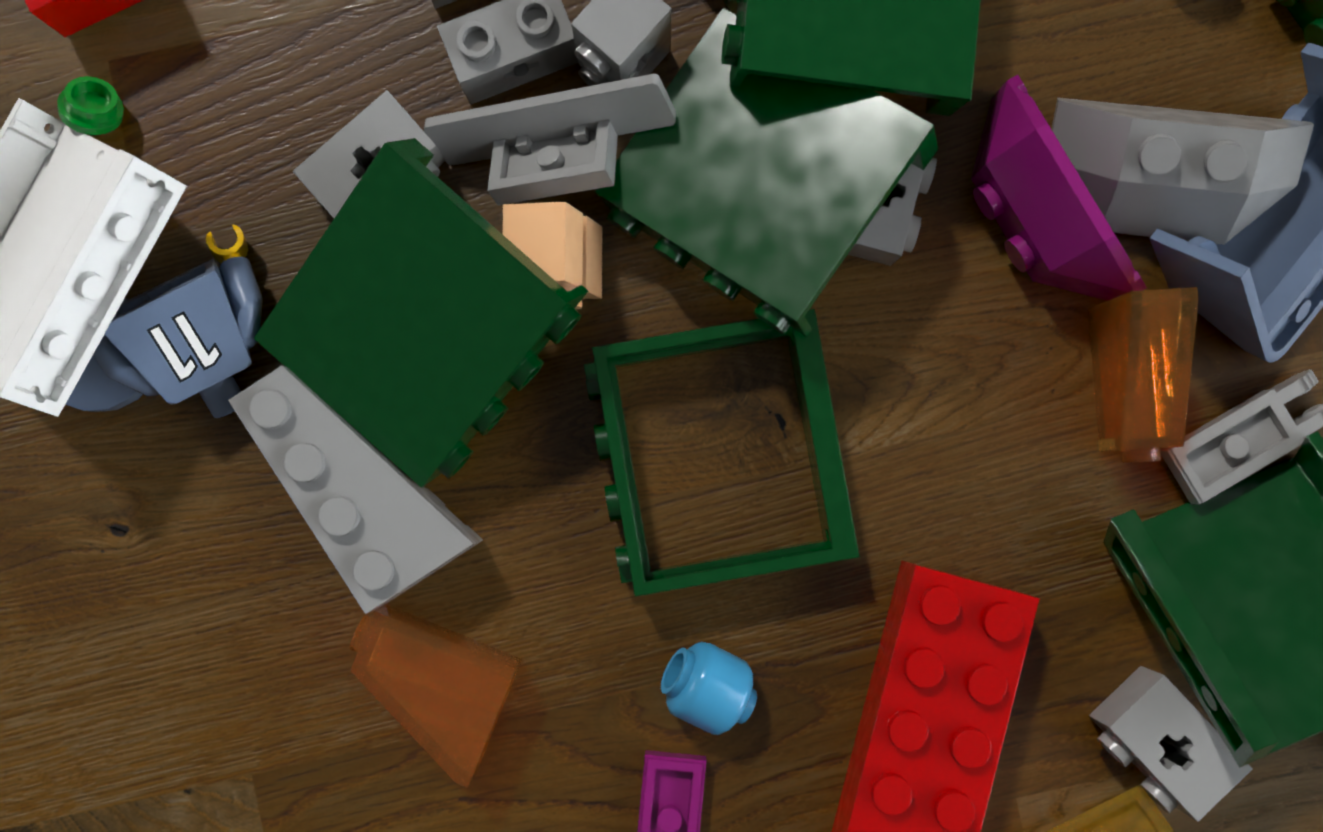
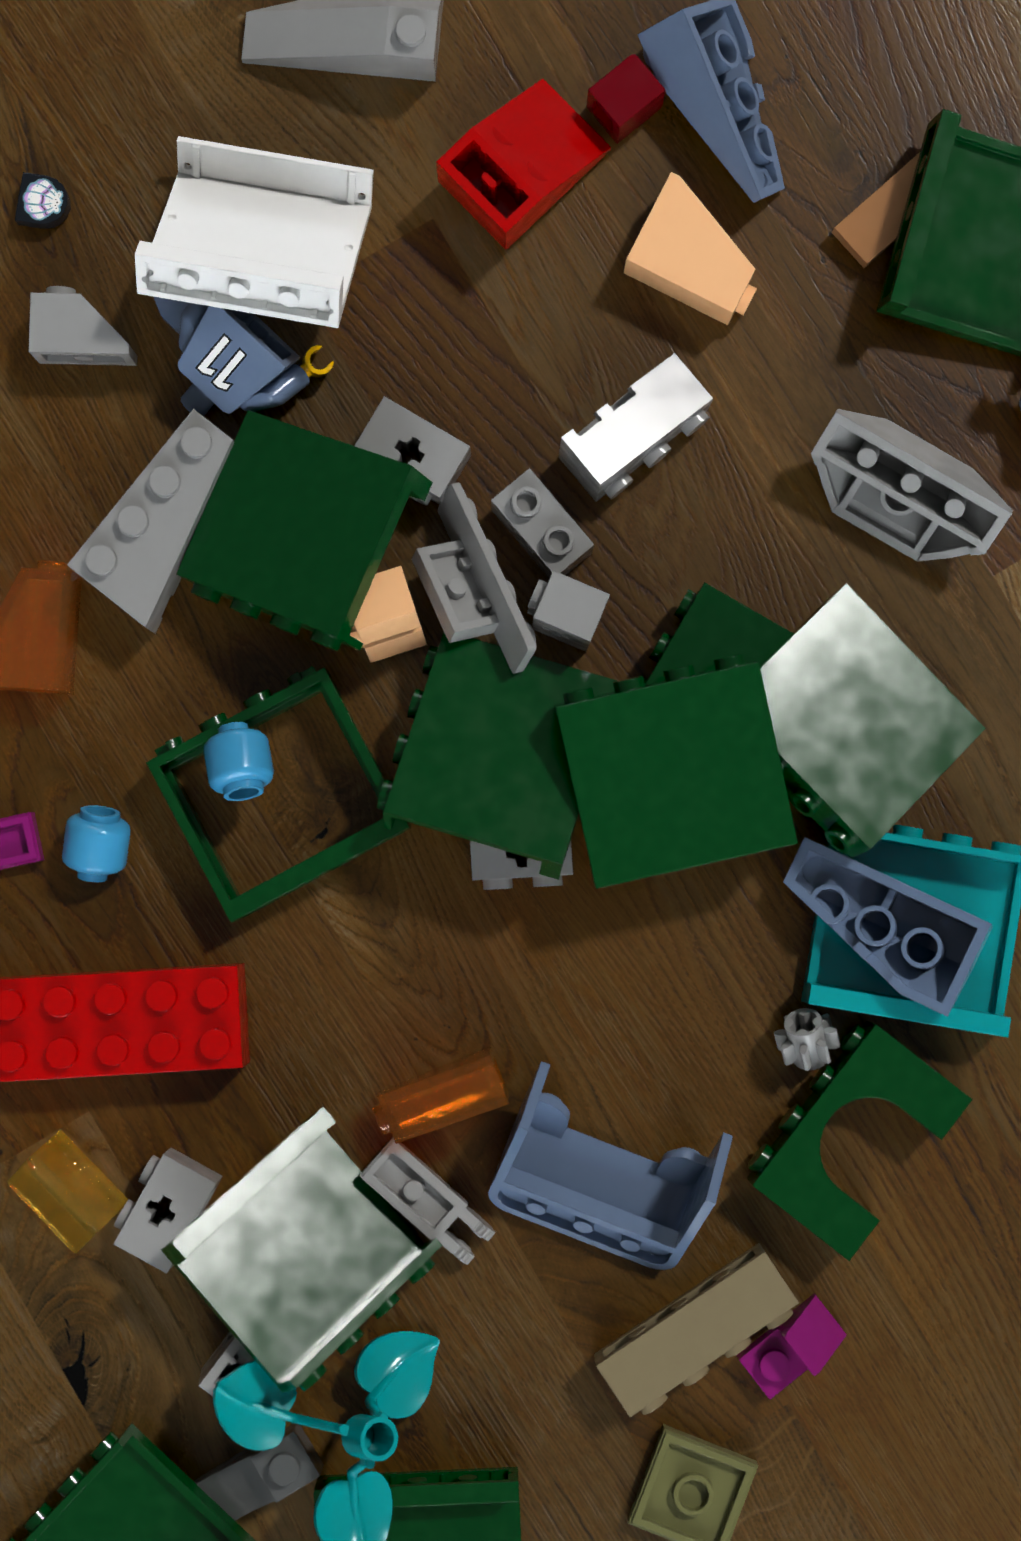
camera: 70 degrees right, 0 degrees up
(90, 106) = (388, 221): green plate -> none
(91, 517) = (71, 331): none -> light grey slope
(673, 482) = (238, 761): none -> dark azure head
(1044, 204) = (553, 980): magenta wedge -> none
(1180, 166) = (617, 1074): light grey wedge -> none

